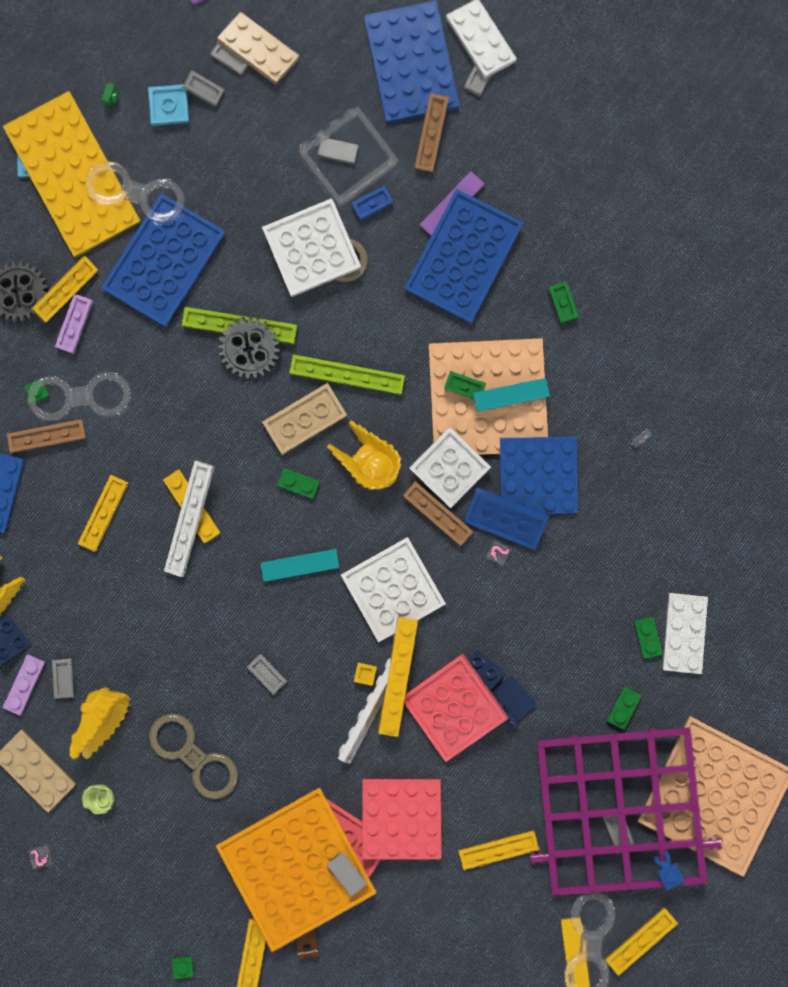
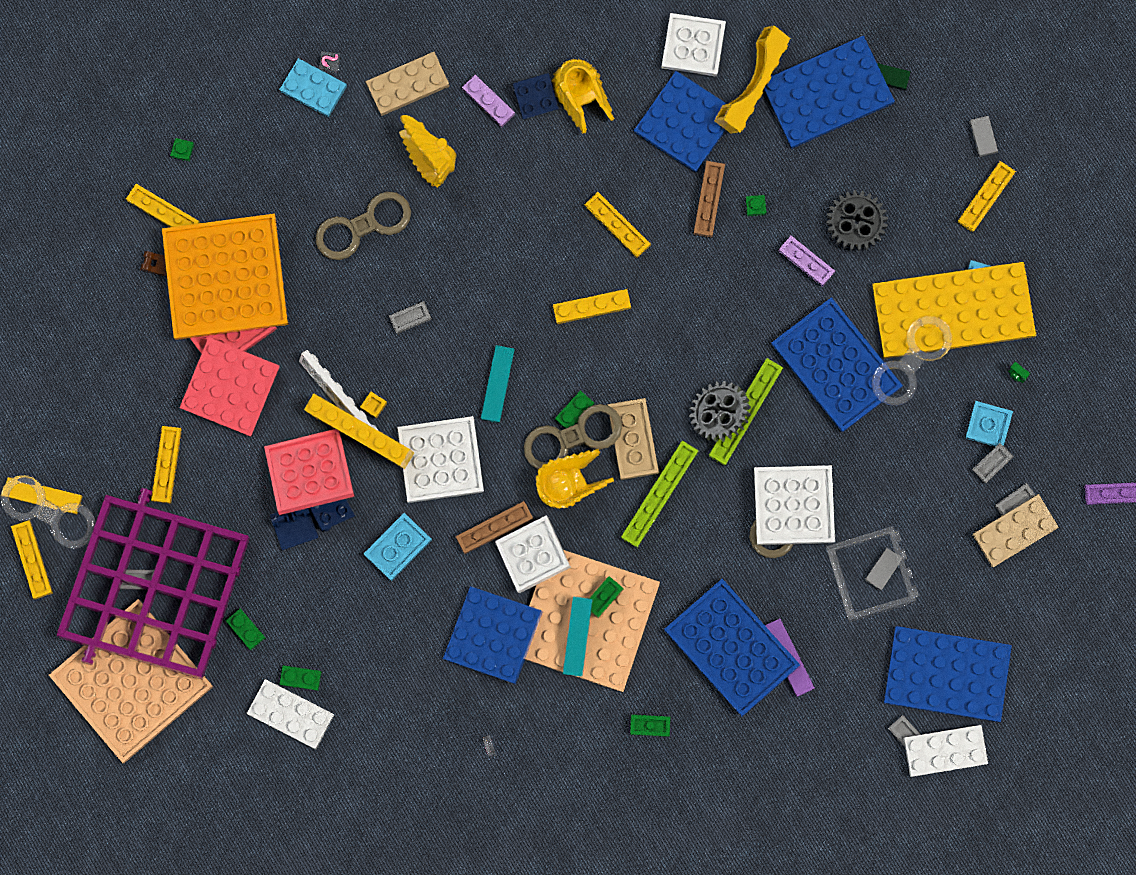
camera: 115 degrees right, 5 degrees down
(63, 678) = (480, 136): light grey tile -> none
(64, 289) = (842, 263): yellow plate -> none
(72, 862) = (313, 87): none -> medium azure plate
(79, 396) = (735, 241): clear bar -> none
(98, 799) = (359, 128): yellowish green hair -> none
(189, 518) = (579, 297): white plate -> none
(324, 474) = (574, 435): none -> dark tan bar
(347, 874) = (201, 317): light grey tile -> none
(372, 203) = (818, 581): blue plate -> none
(431, 132) = (865, 663): medium nougat plate -> none
(491, 596) = (397, 546): none -> medium azure plate
(498, 553) = (435, 570): clear tile -> none
(506, 518) = (463, 587): blue plate -> none
(669, 873) = (78, 604): blue plate -> none

